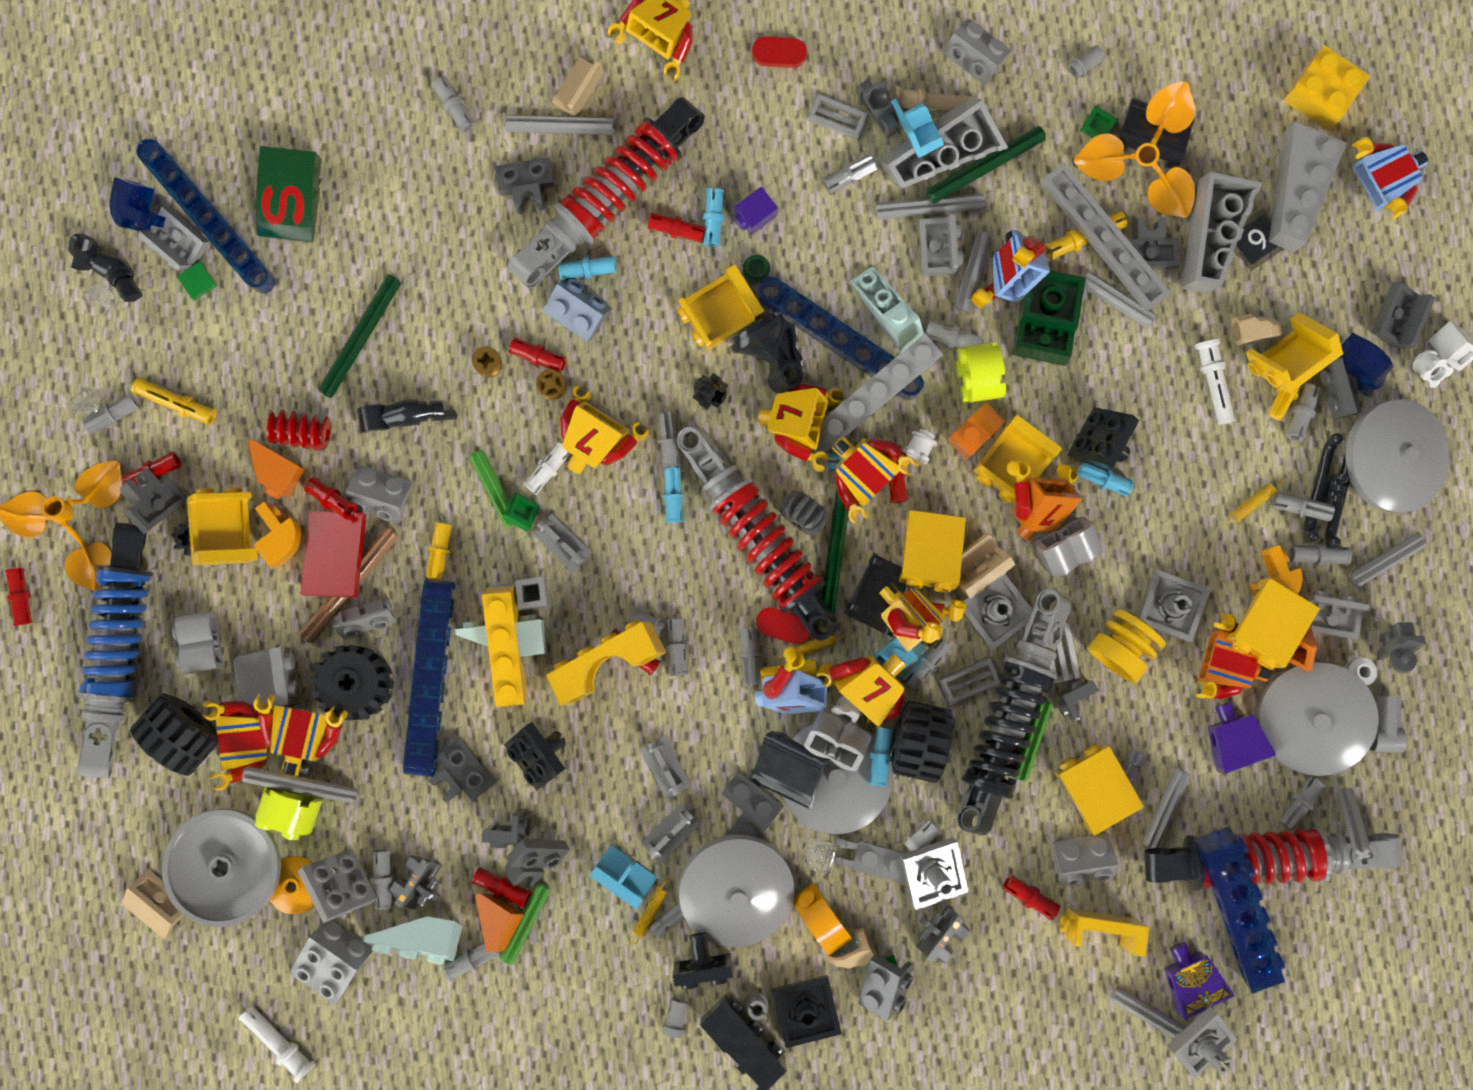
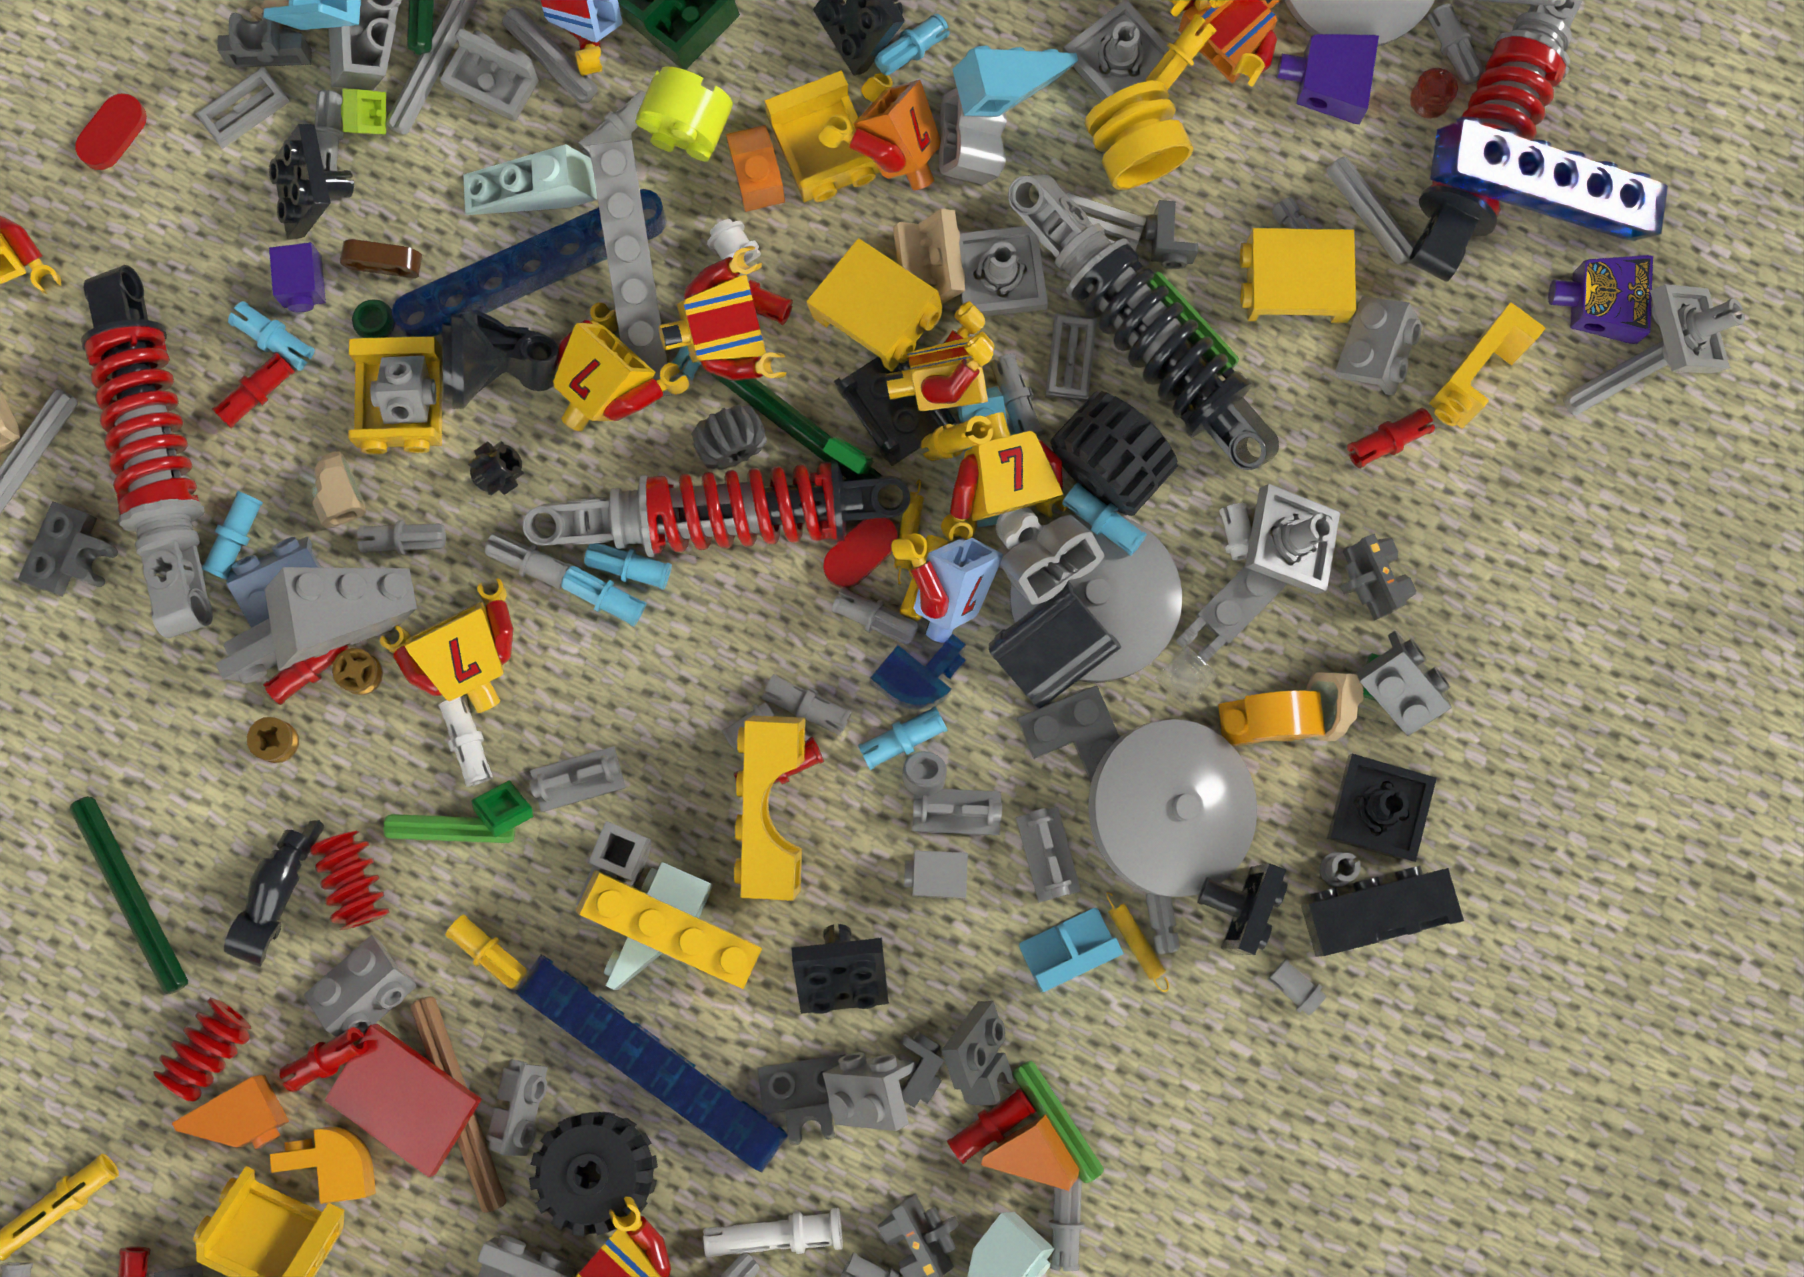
camera: 60 degrees left, 5 degrees down
(383, 812) = (795, 1233): none -> white pin
(433, 453) = (348, 880): none -> red piece
(477, 809) = (868, 1091): none -> light grey bracket
(538, 325) = (249, 654): none -> light grey bracket
(575, 353) = (334, 607): none -> light grey wedge
(622, 777) = (937, 874): none -> light grey brick
(640, 362) = (402, 537): none -> light grey axle
(645, 309) = (336, 492): none -> tan rock
(676, 736) = (924, 773): none -> light grey tile
(689, 712) = (902, 737): none -> medium azure pin
(698, 499) = (627, 565): none -> medium azure axle
(722, 703) = (915, 685): none -> clear blue brick
(723, 313) = (403, 390): none -> light grey brick
(794, 251) = (381, 258): none -> reddish brown beam
(811, 181) = (304, 183): none -> black plate
(832, 588) = (848, 455): none -> green tile
(873, 188) = (364, 111): none -> lime bracket
(876, 646) = (956, 438): none -> yellow pin
(1108, 545) = (998, 79): none -> medium azure slope
(1192, 642) = (1181, 52): none -> yellow axle
(1268, 808) = (1437, 83): none -> clear red wheel

